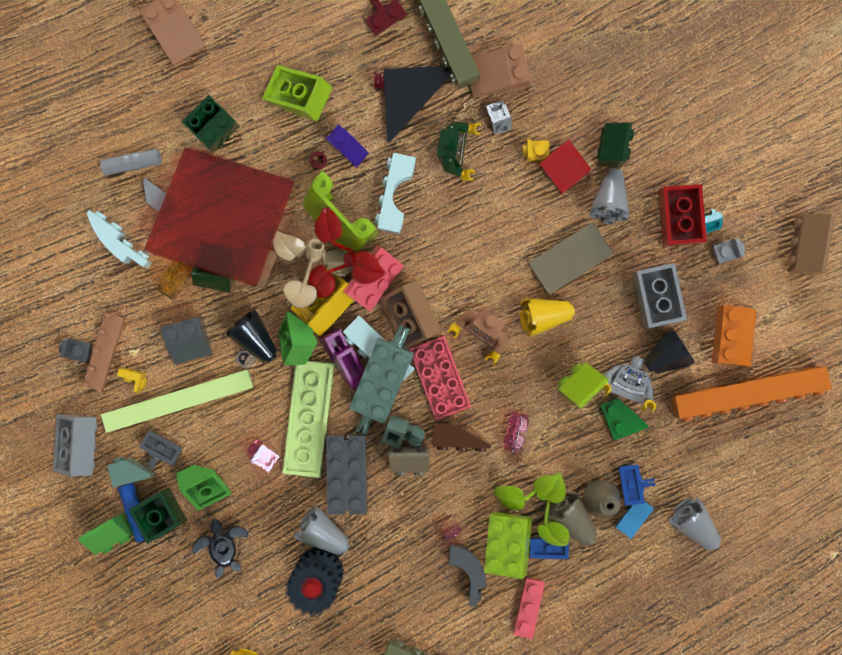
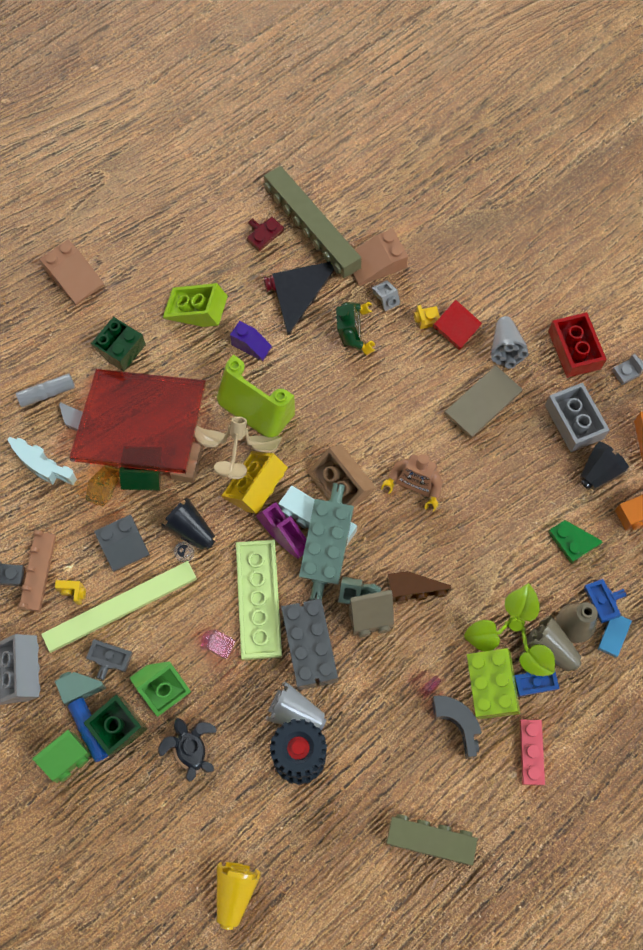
camera: 10 degrees left, 20 degrees down
(295, 340) = (233, 519): bright green slope -> none
(319, 166) = (222, 355): dark red bush -> none
(365, 264) = (289, 432): red plant -> none
(370, 294) = (298, 449): coral plate -> none
(400, 170) = (305, 354): light aqua arch -> none
(440, 378) = (384, 535): coral tile -> none
(513, 440) = (472, 562): clear pink hinge -> none
(543, 314) = (470, 454): yellow cone -> none
(581, 384) = (524, 509): lime slope -> none
(614, 144) = (498, 296): dark green slope -> none
(631, 383) = (572, 503): light grey torso -> none
(713, 221) = (608, 345): teal tile -> none

